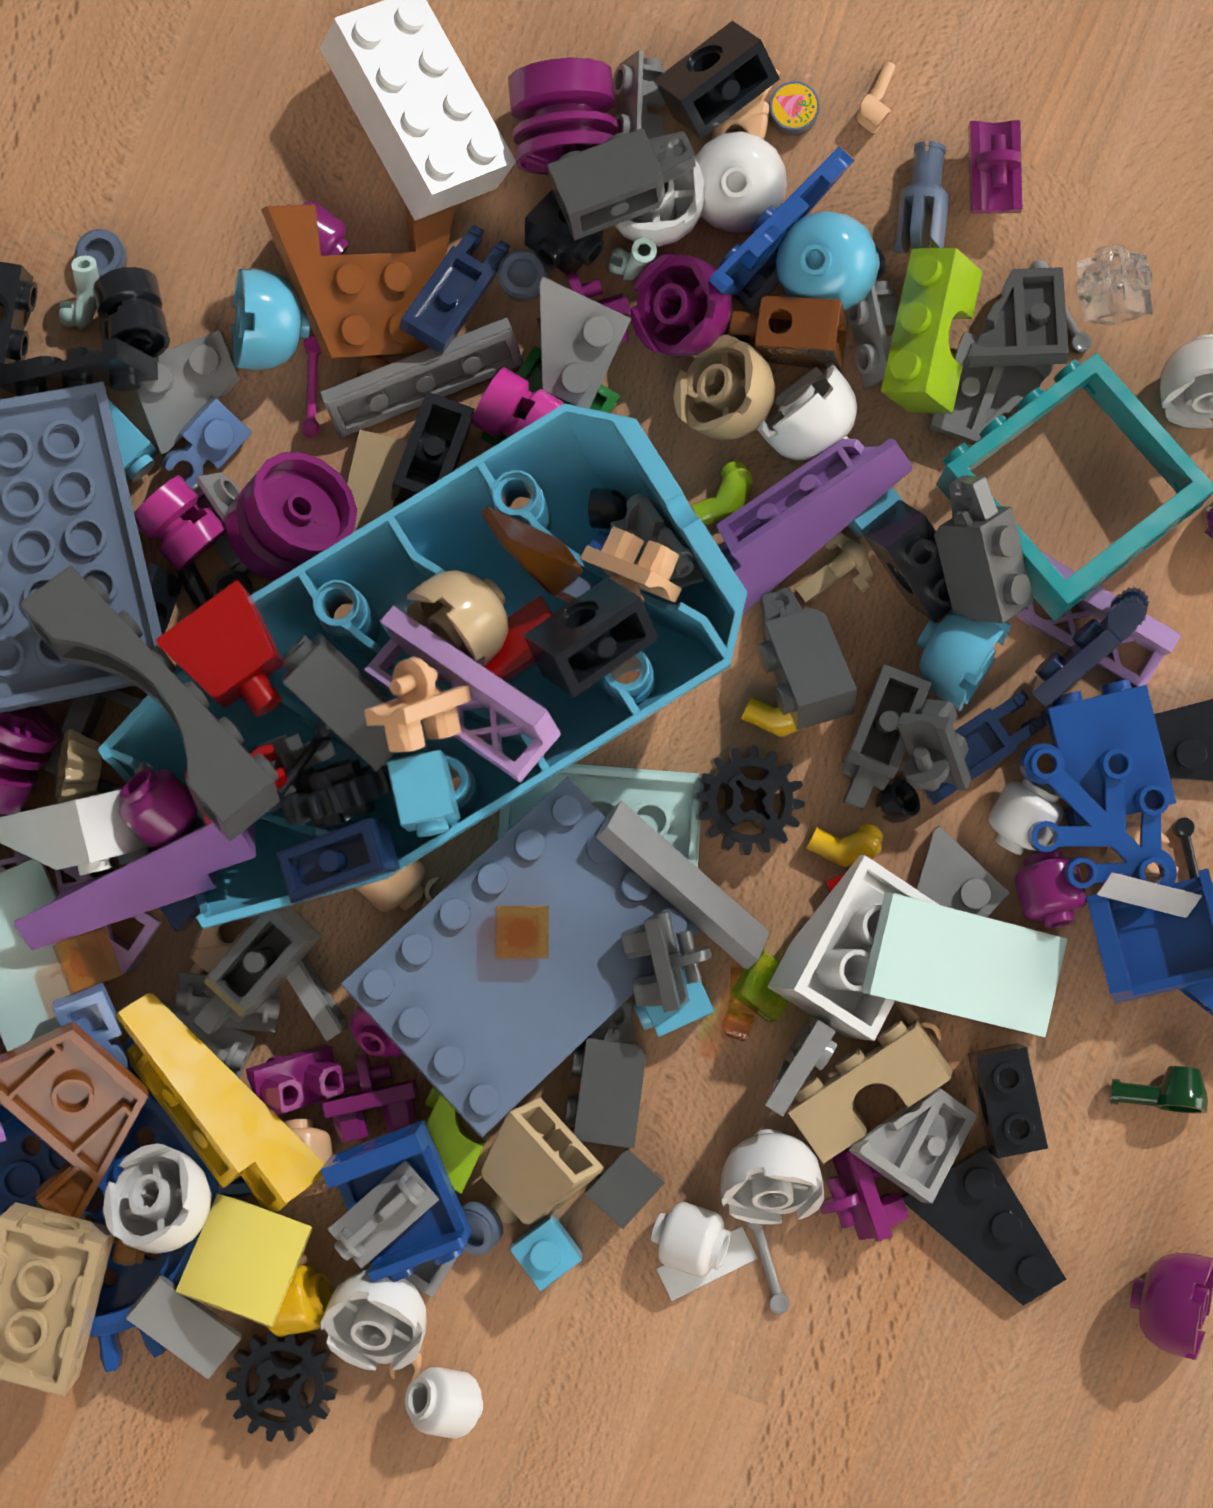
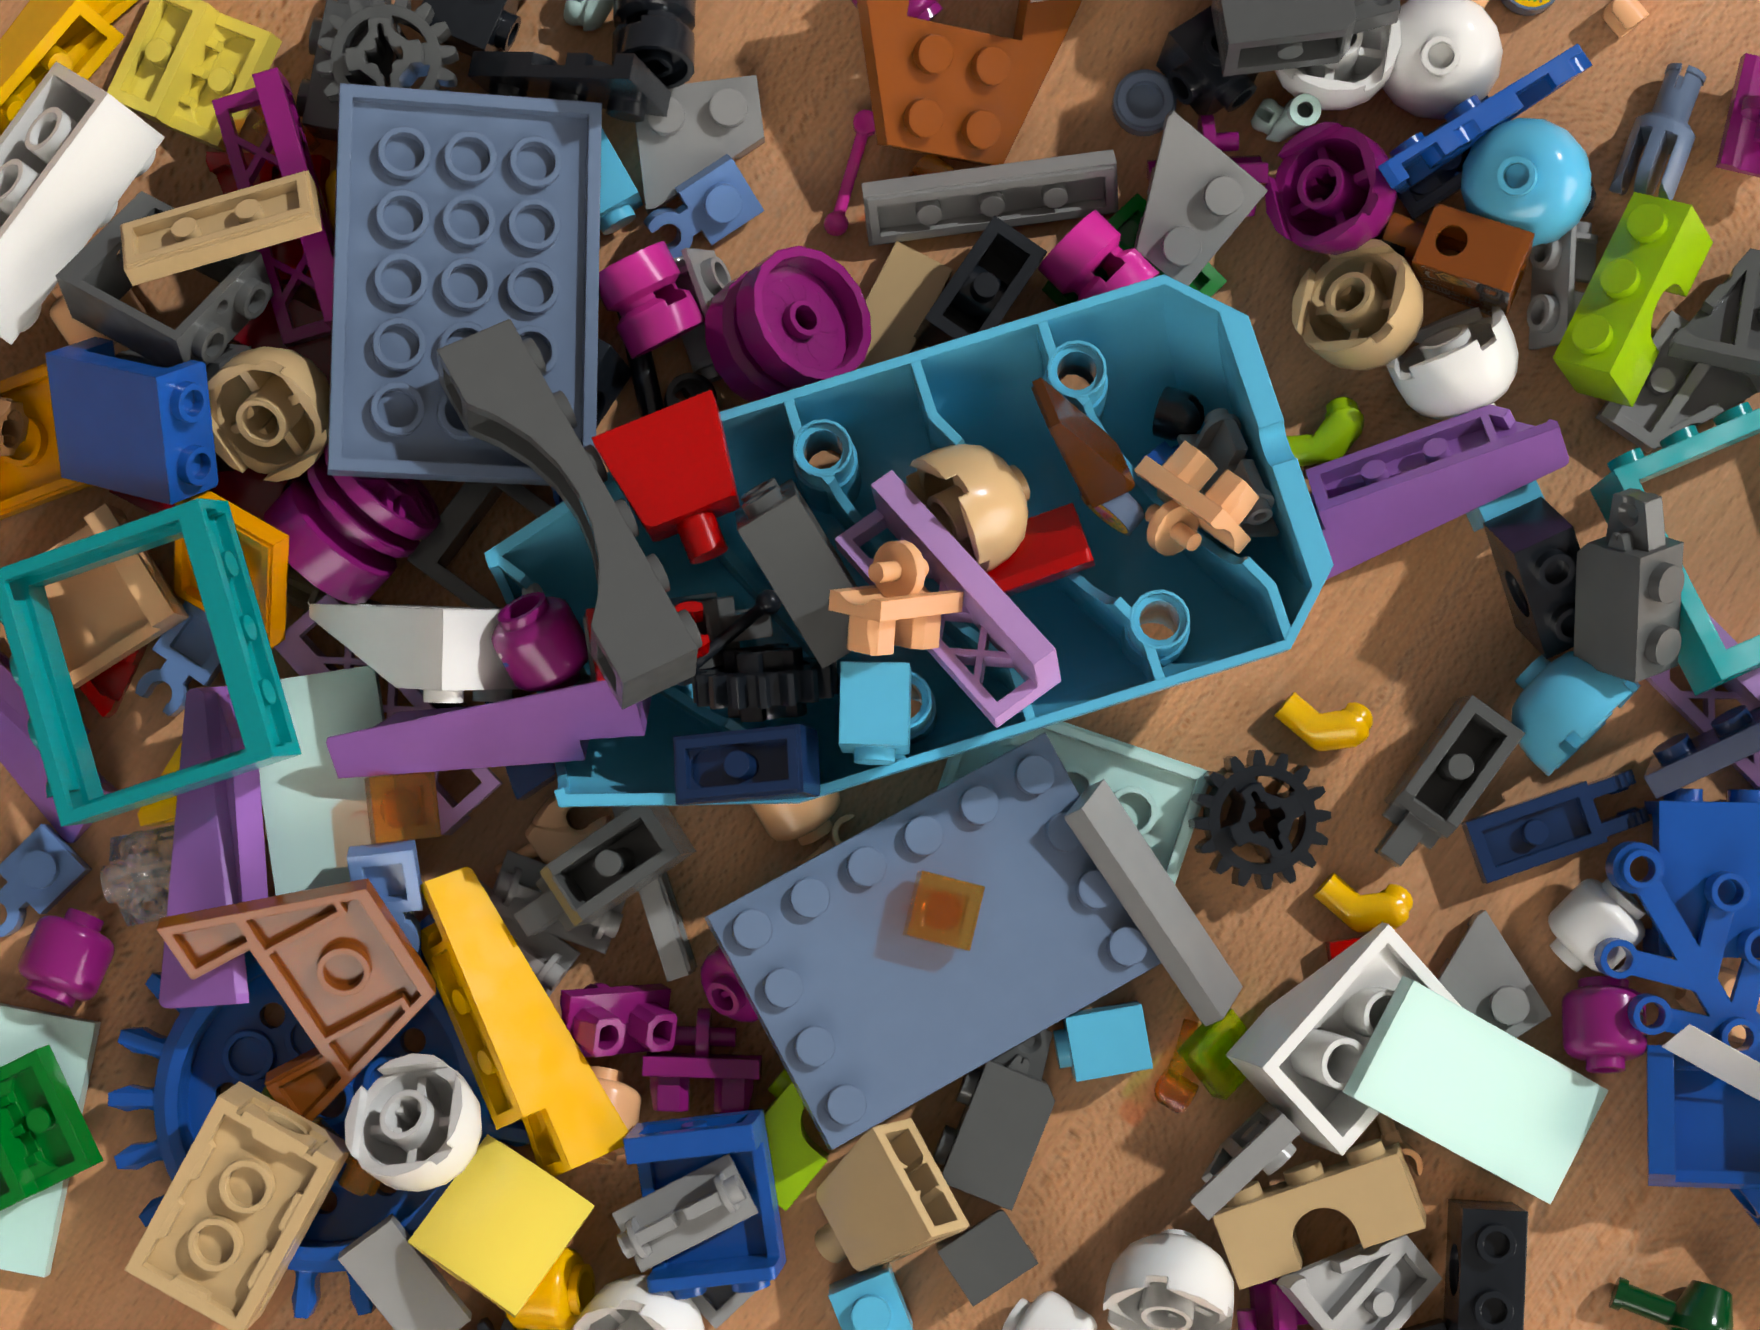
camera: 15 degrees right, 0 degrees up
(77, 767) = (450, 567): tan piece -> none
(266, 320) = (818, 77): medium azure cylinder -> none
(452, 292) = (1054, 101): dark blue hinge -> none
(485, 1227) = (803, 1257): sand blue tile -> none
(591, 636) = (1128, 571): black brick -> none
(667, 984) = (1105, 1021): dark grey hips -> none
(805, 661) = (1373, 666): dark grey hinge -> none
(852, 556) = (1462, 551): tan piece -> none
(898, 801) = (1442, 867): black hinge -> none
(934, 747) = (1508, 813): dark grey hips -> none

